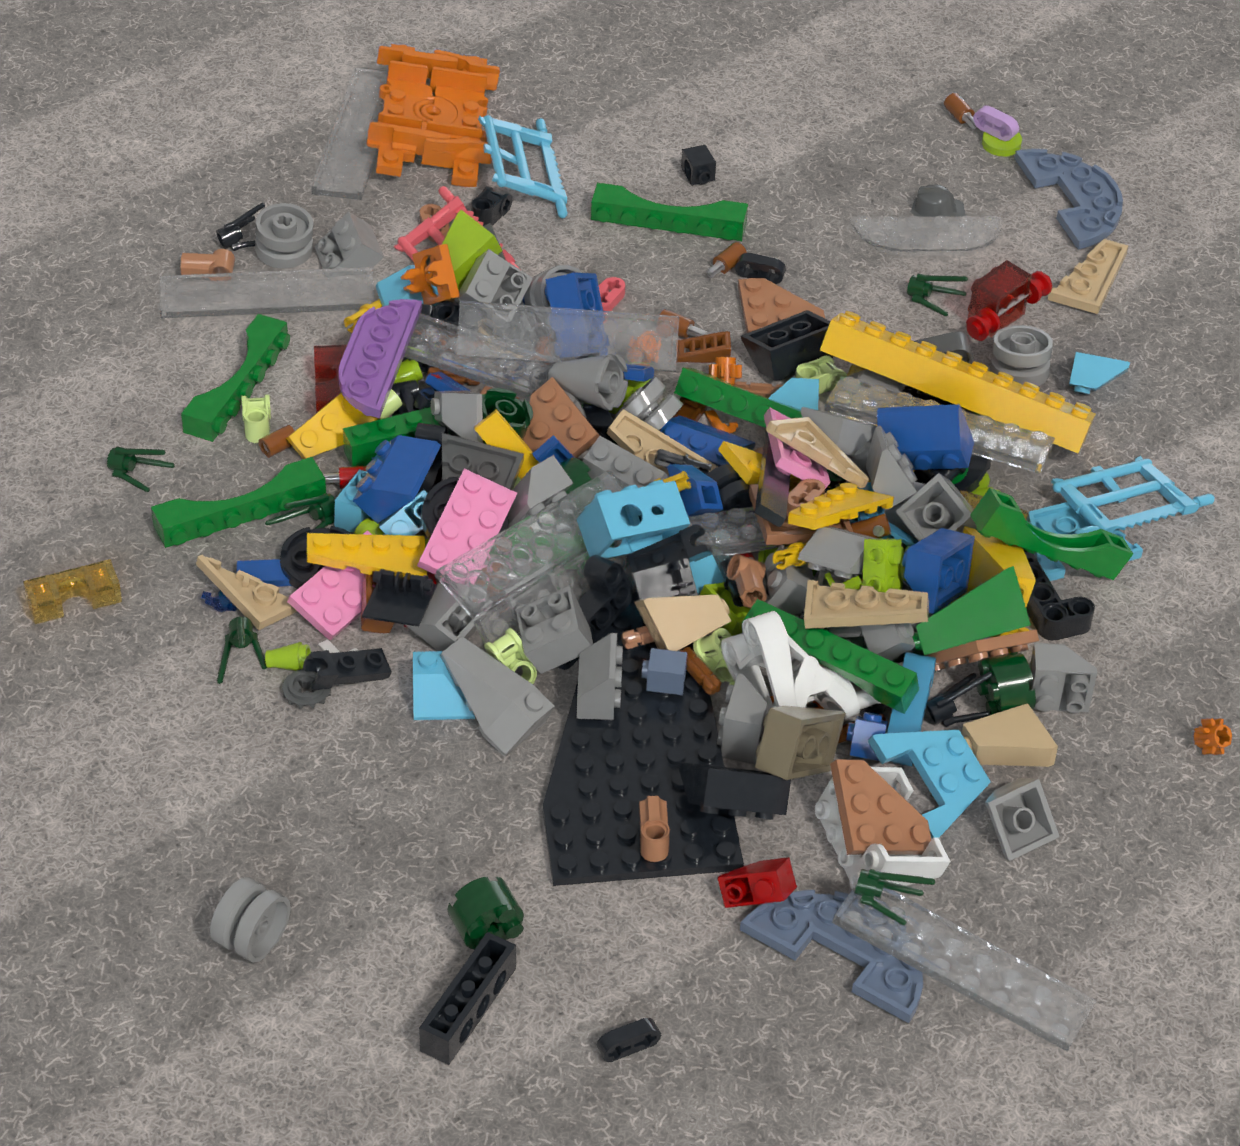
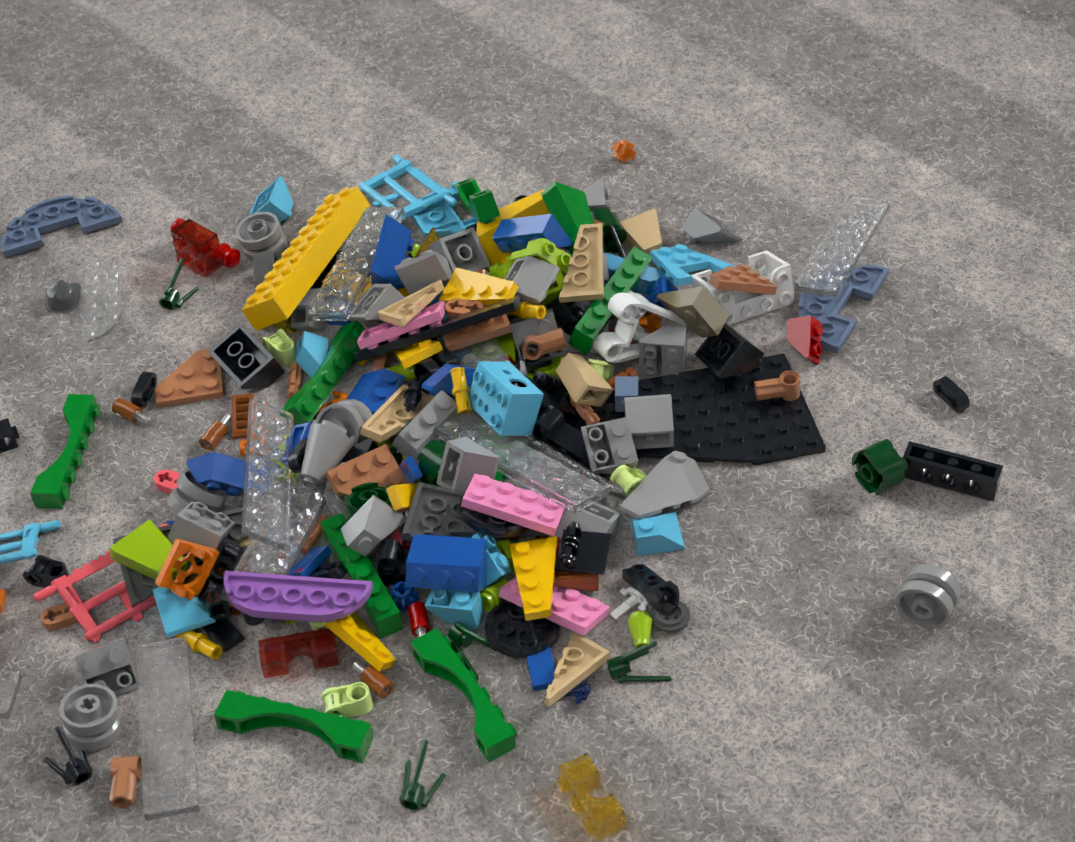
camera: 90 degrees left, 0 degrees up
(726, 369) = (277, 395): orange gear -> none
(871, 885) = (810, 272): dark green plant -> none
(1092, 279) = (157, 210): tan wing -> none

